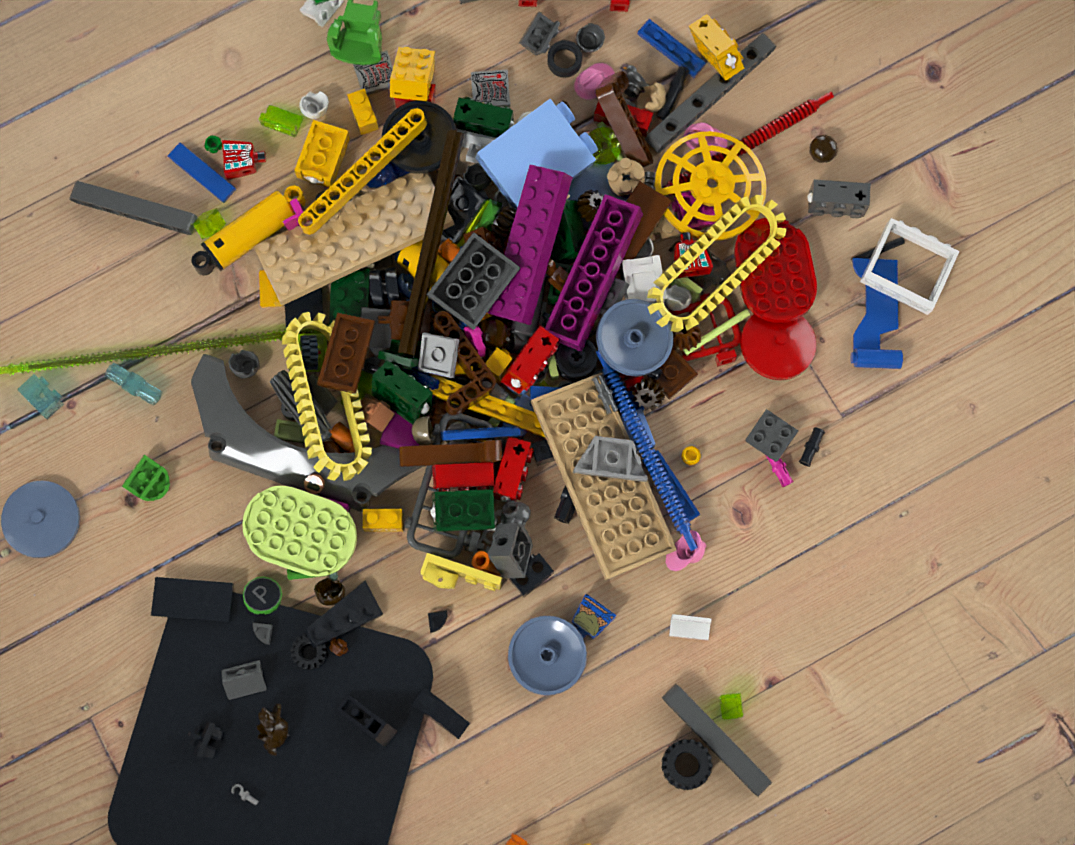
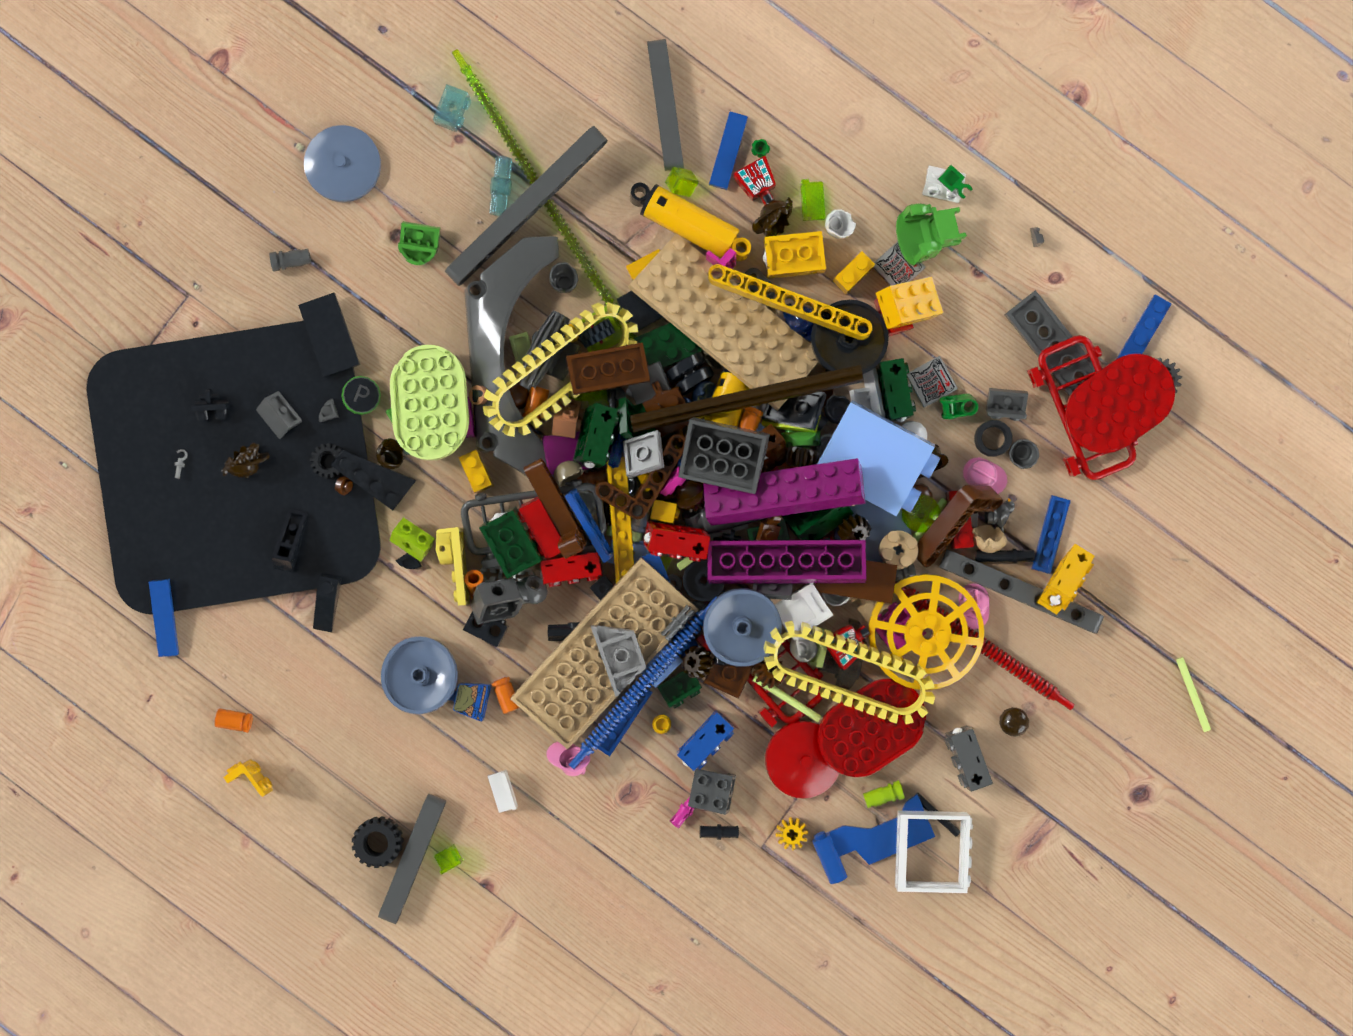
camera: 70 degrees right, 10 degrees up
(104, 606) = (289, 259): none -> dark grey axle
(163, 368) = (526, 205): none -> dark grey beam
(280, 158) = (773, 218): none -> dark brown hair
(418, 606) = (412, 539): none -> lime brick
(522, 78) = (954, 406): none -> green piece
(599, 585) = (504, 690): none -> orange piece
(665, 424) = (679, 688): none -> dark green bracket
(723, 419) = (705, 741): none -> blue piece
(840, 287) = (884, 794): none -> lime axle
(848, 381) = (786, 838): none -> yellow gear

